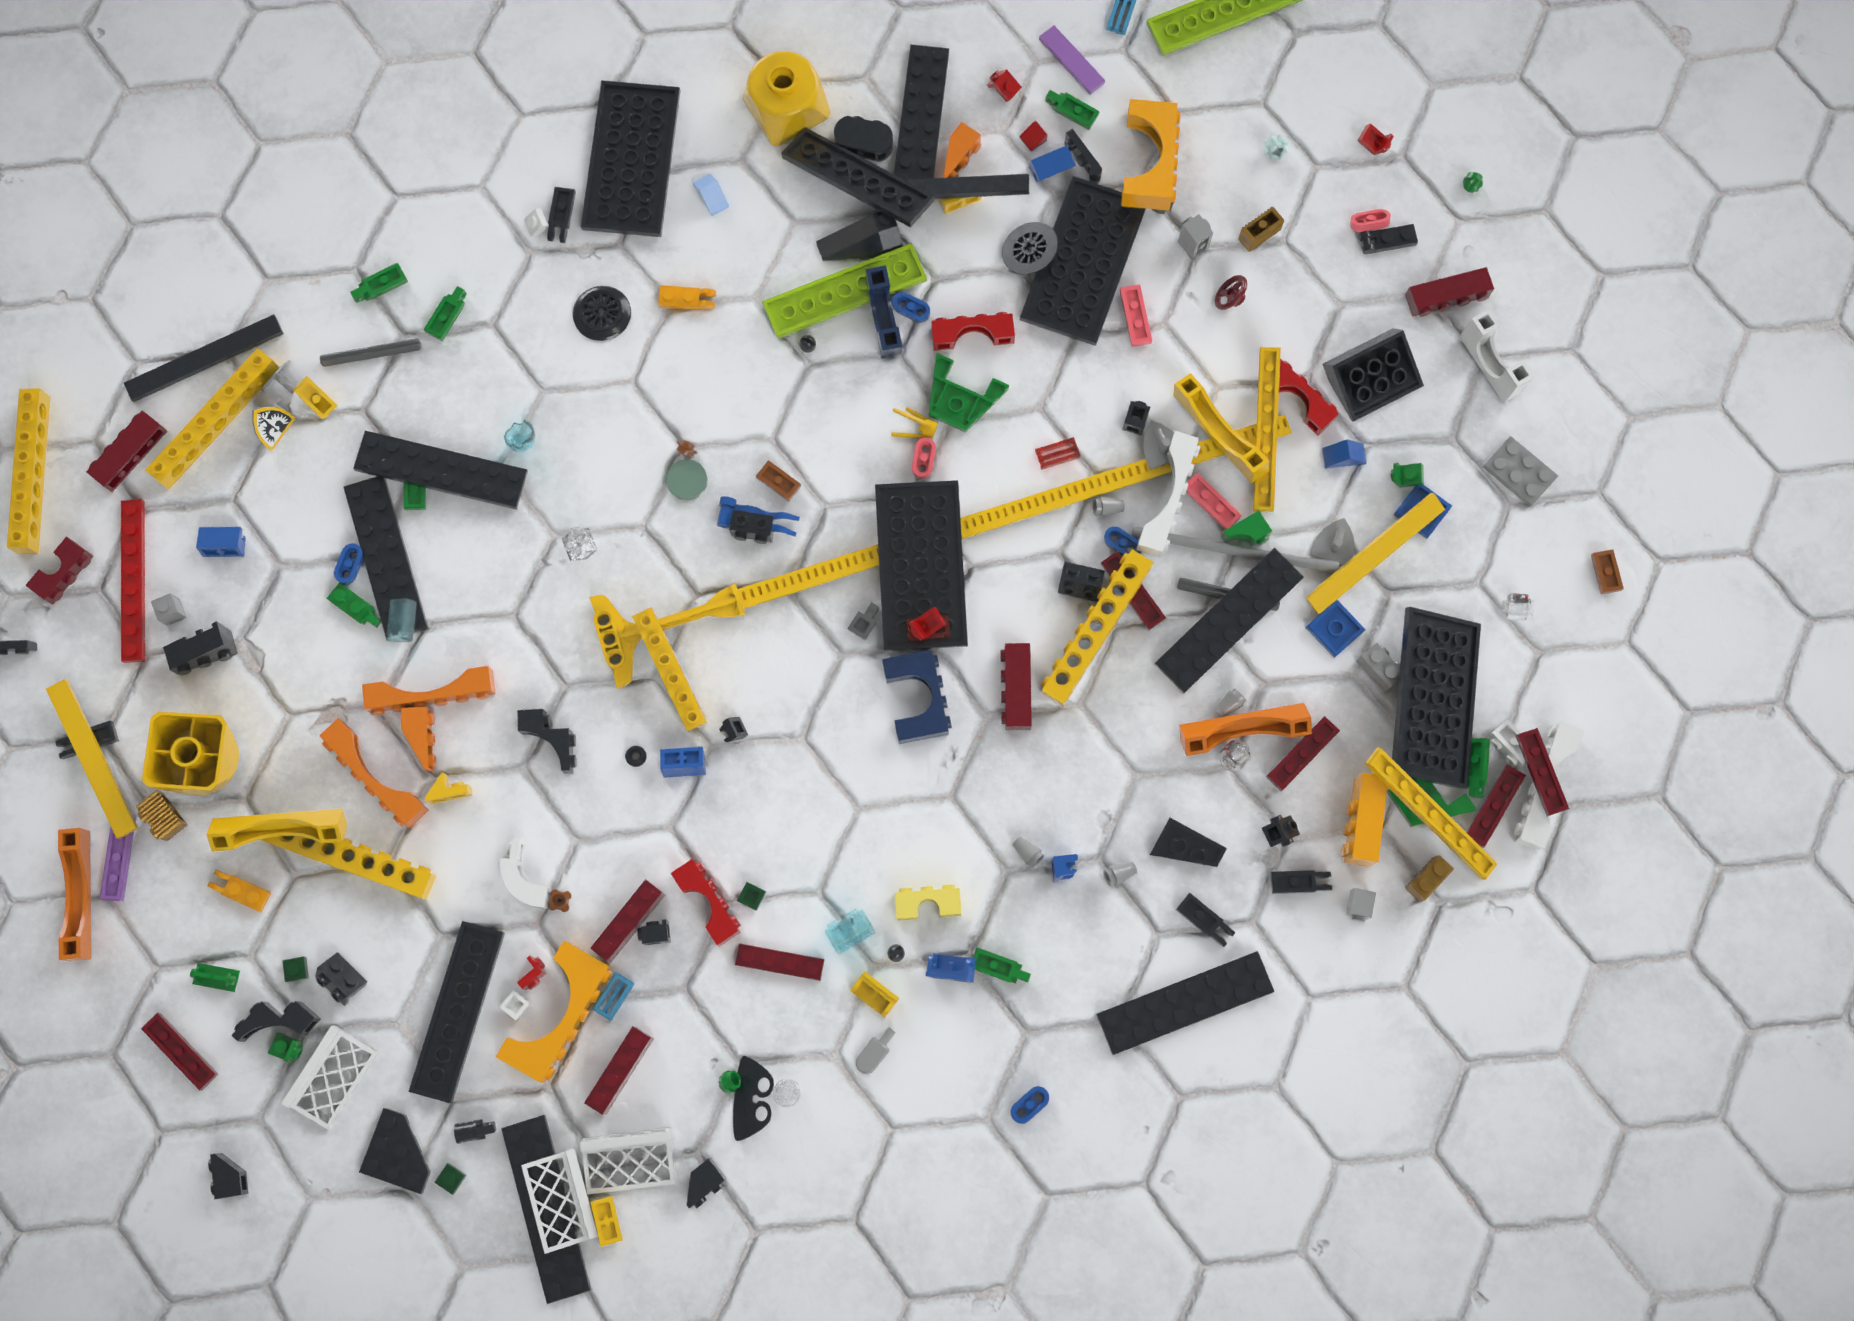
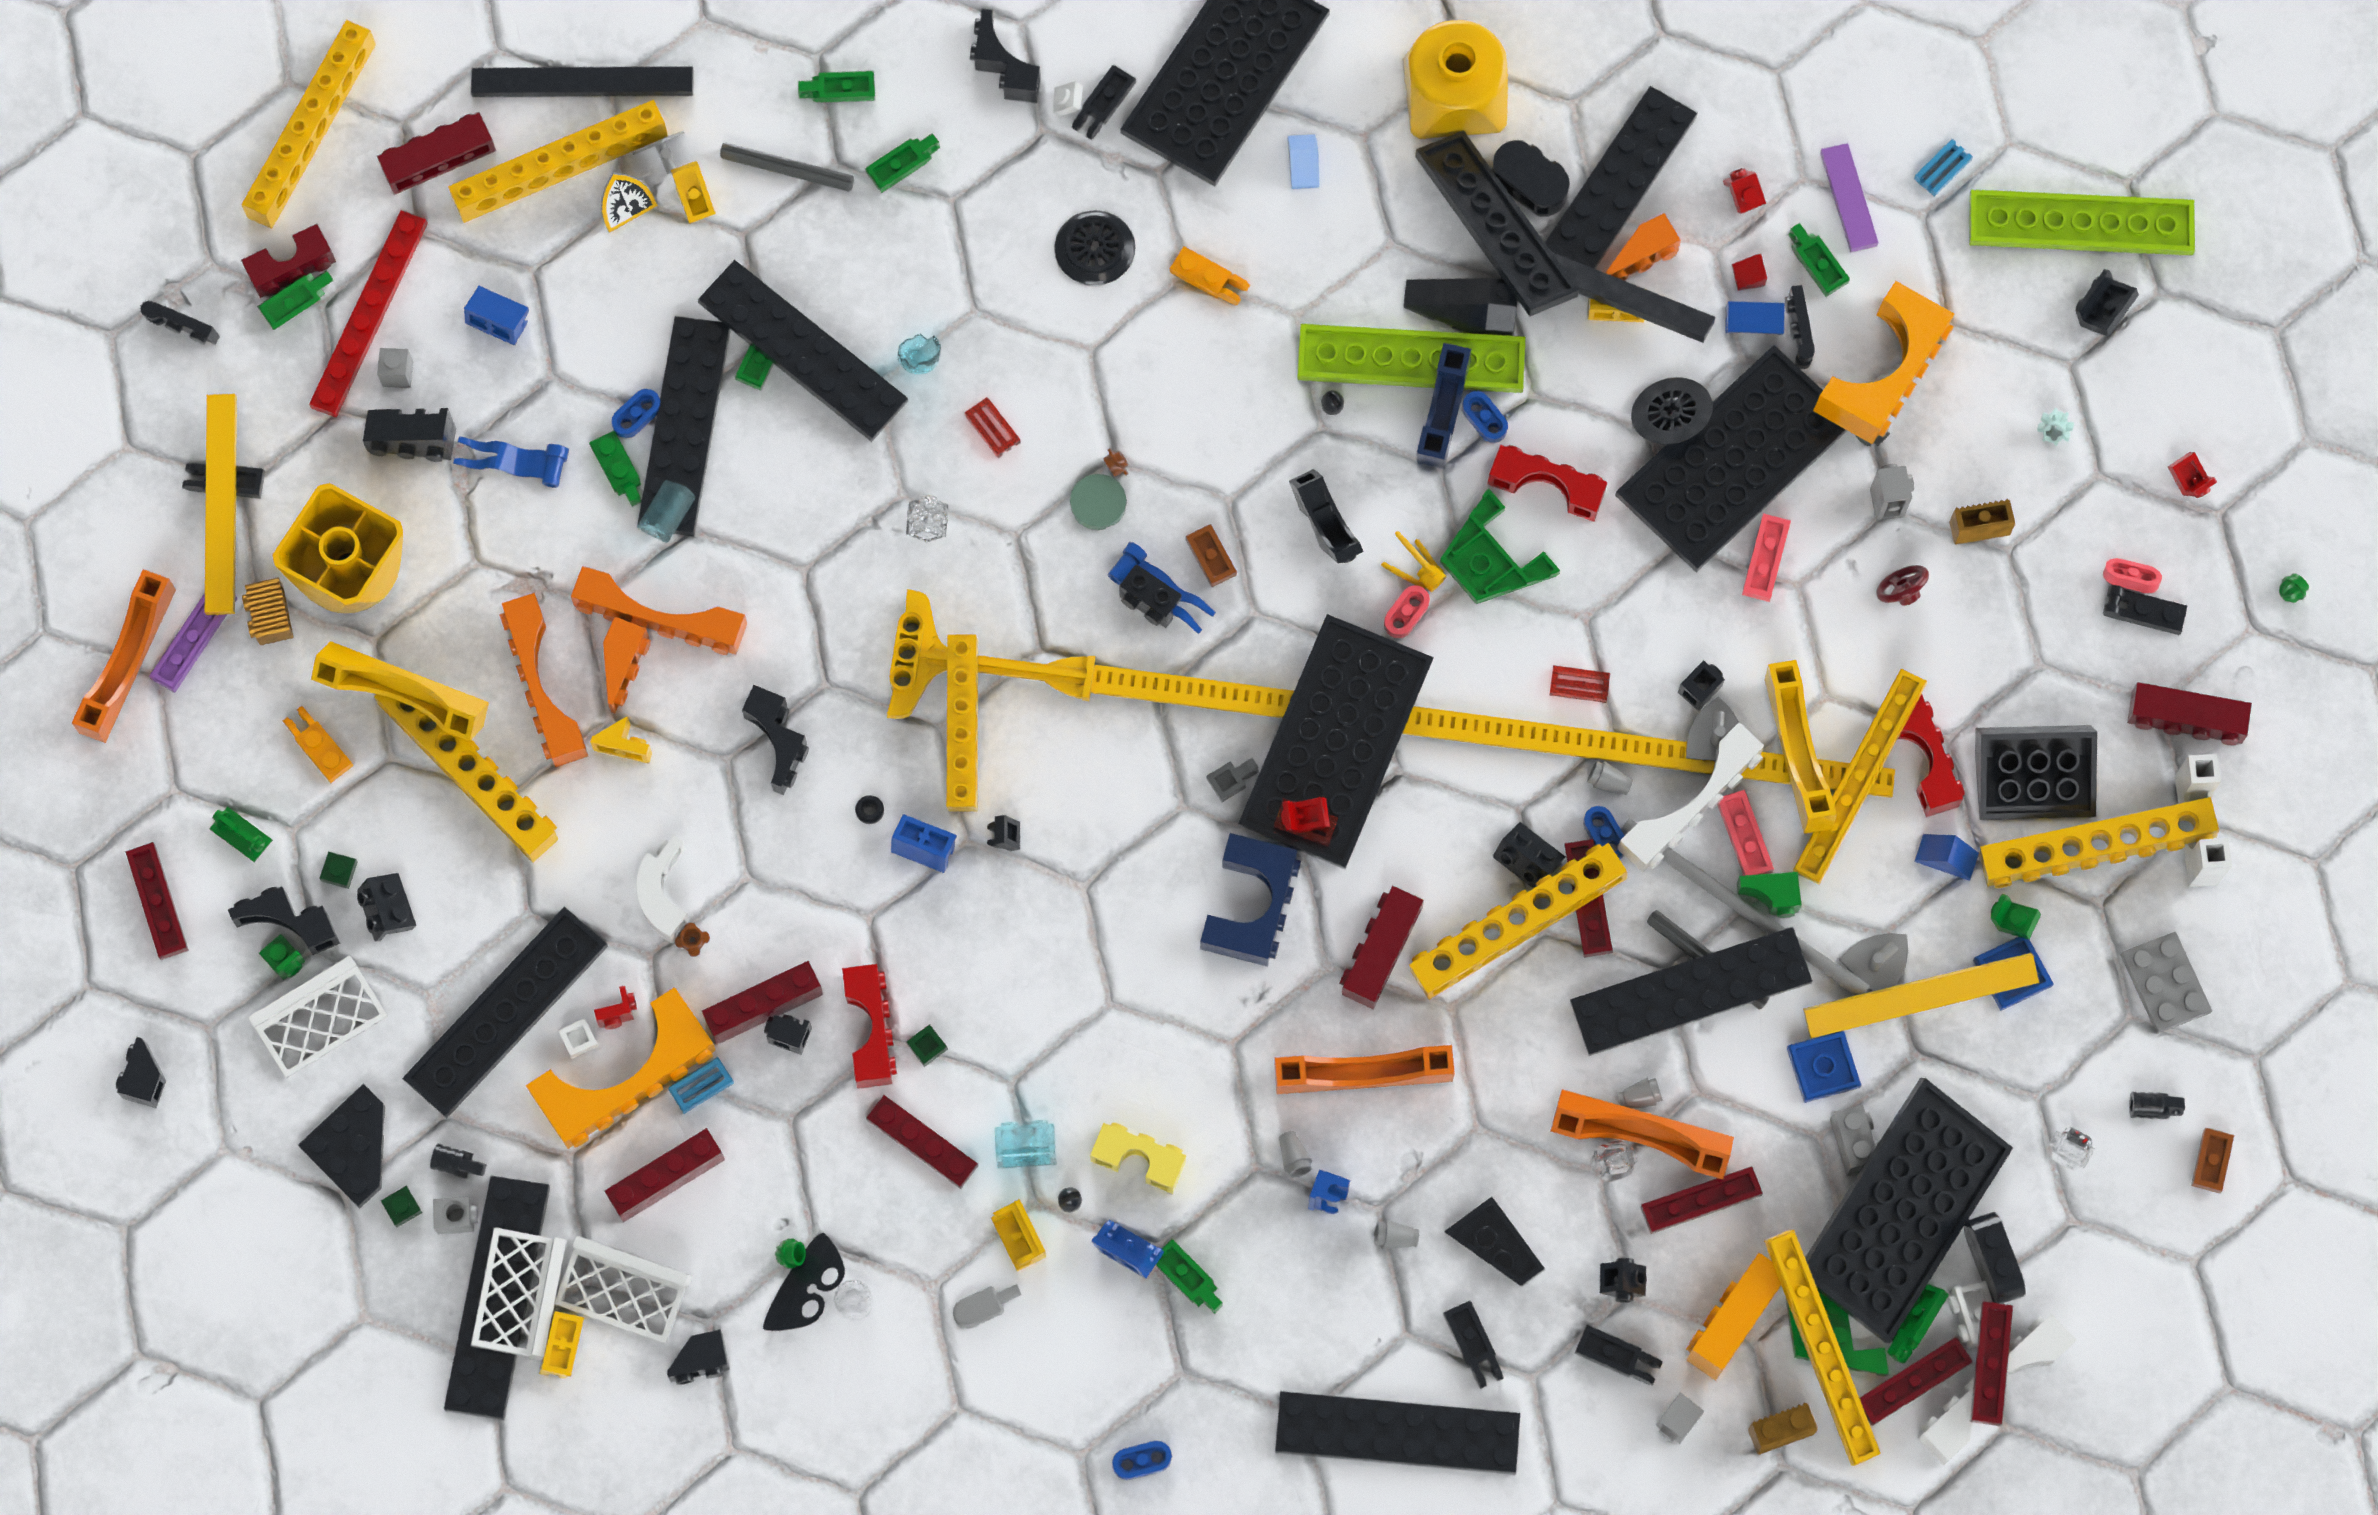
camera: 25 degrees right, 5 degrees down
(76, 594) = (294, 299): none -> green hinge
(284, 633) = (519, 461): none -> blue flag
(480, 1171) = (442, 1209): none -> light grey brick
(495, 223) = (1017, 78): none -> black arch
(607, 471) = (1005, 445): none -> clear red tile
(844, 424) = (1328, 525): none -> black arch
(1047, 774) = (1408, 1067): none -> orange arch
(1267, 55) = (2105, 304): none -> black bracket
(1492, 353) = (2197, 812): none -> yellow brick
(1506, 701) = (1994, 1257): none -> black brick
(1554, 554) = (2155, 1105): none -> black hinge

